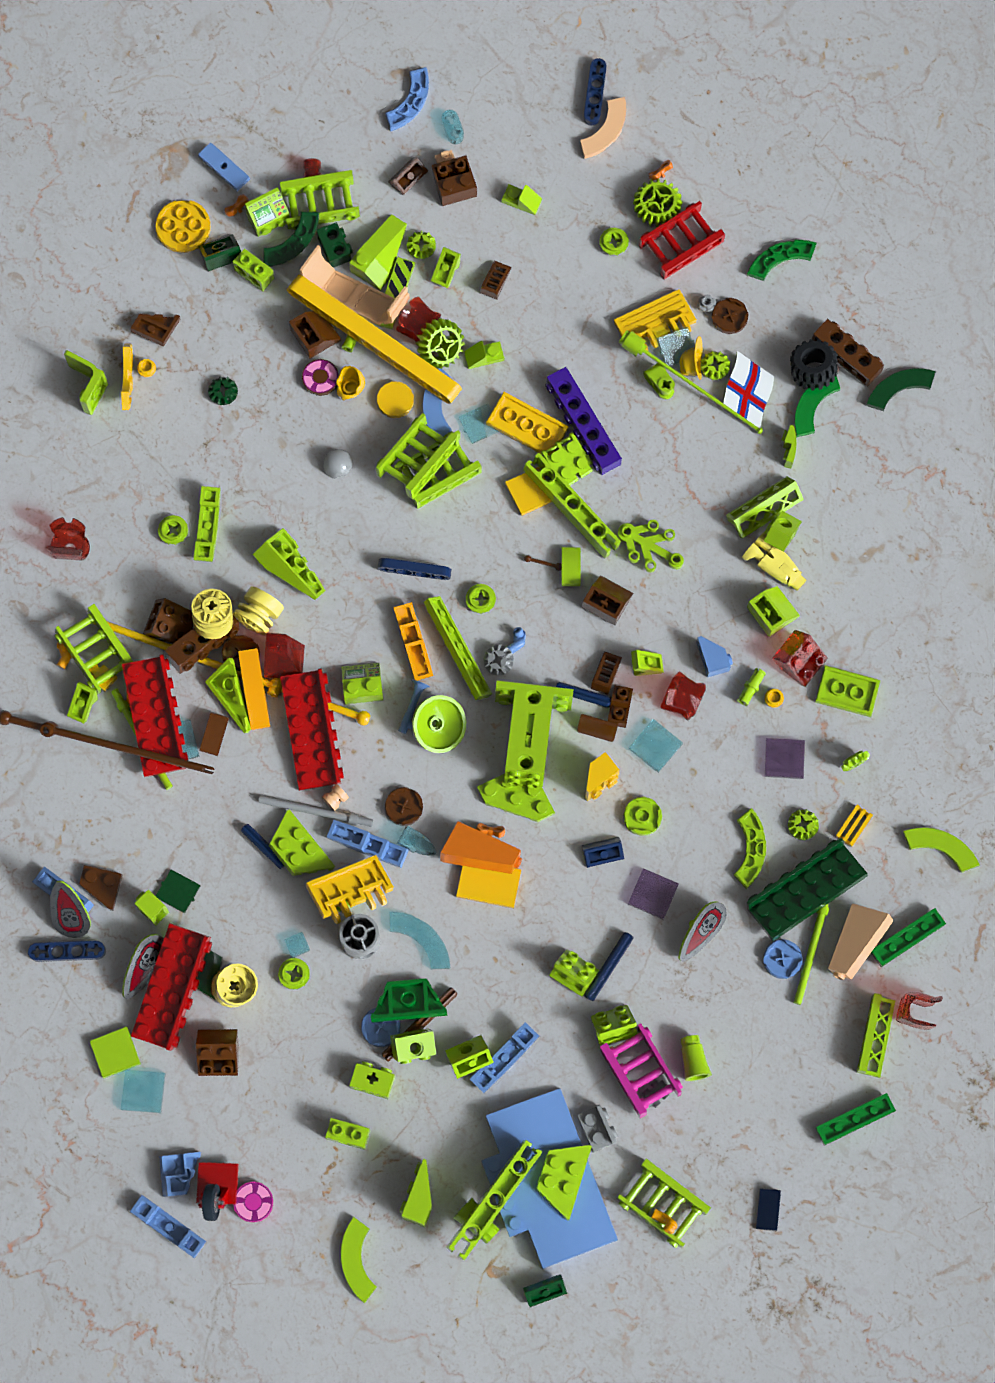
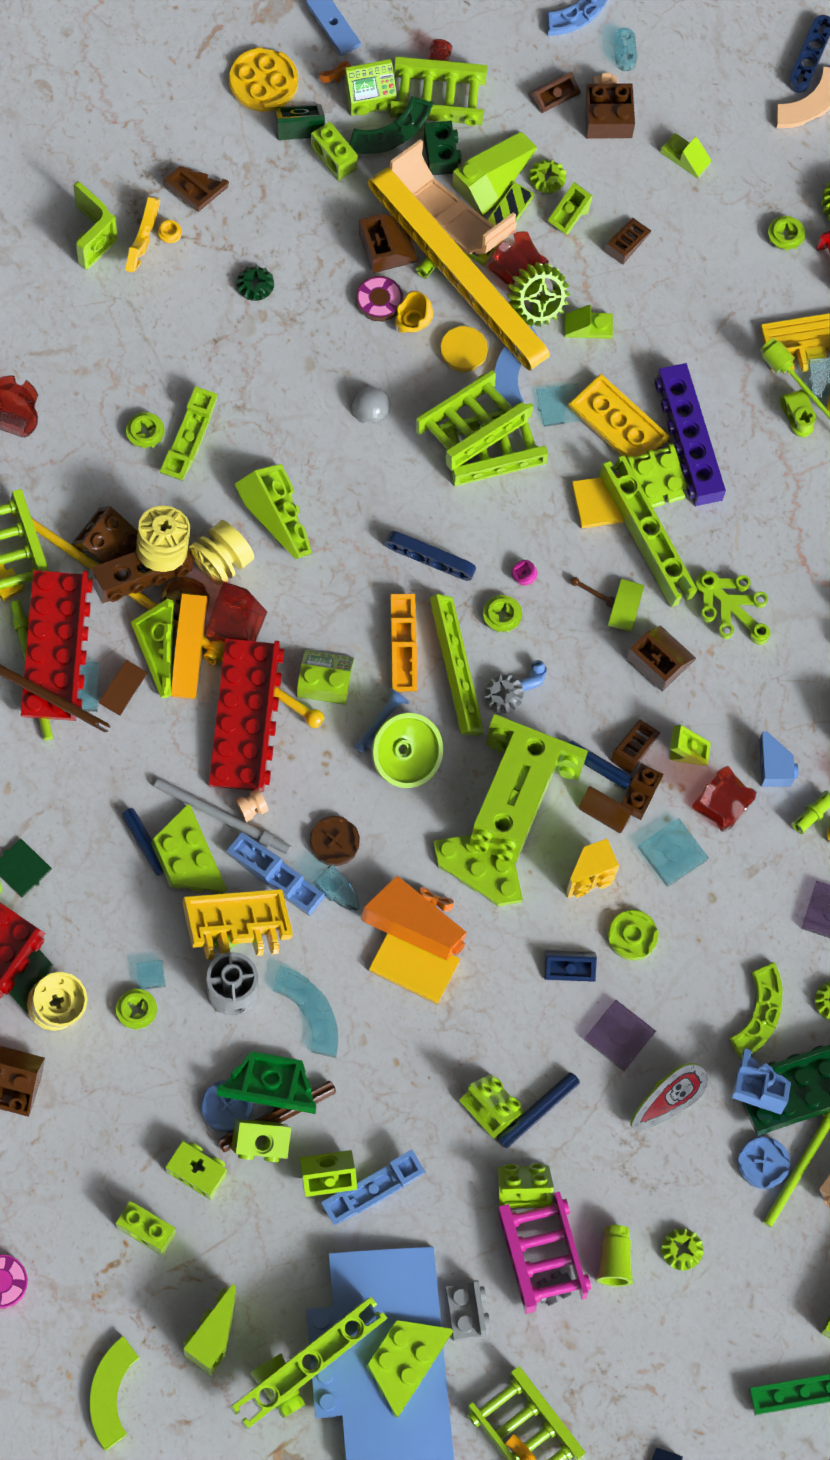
camera: 10 degrees right, 5 degrees down
(488, 562) = (524, 572): none -> dark pink tile
(732, 1043) = (684, 1261): none -> lime gear
(765, 904) = (760, 1085): none -> medium blue slope

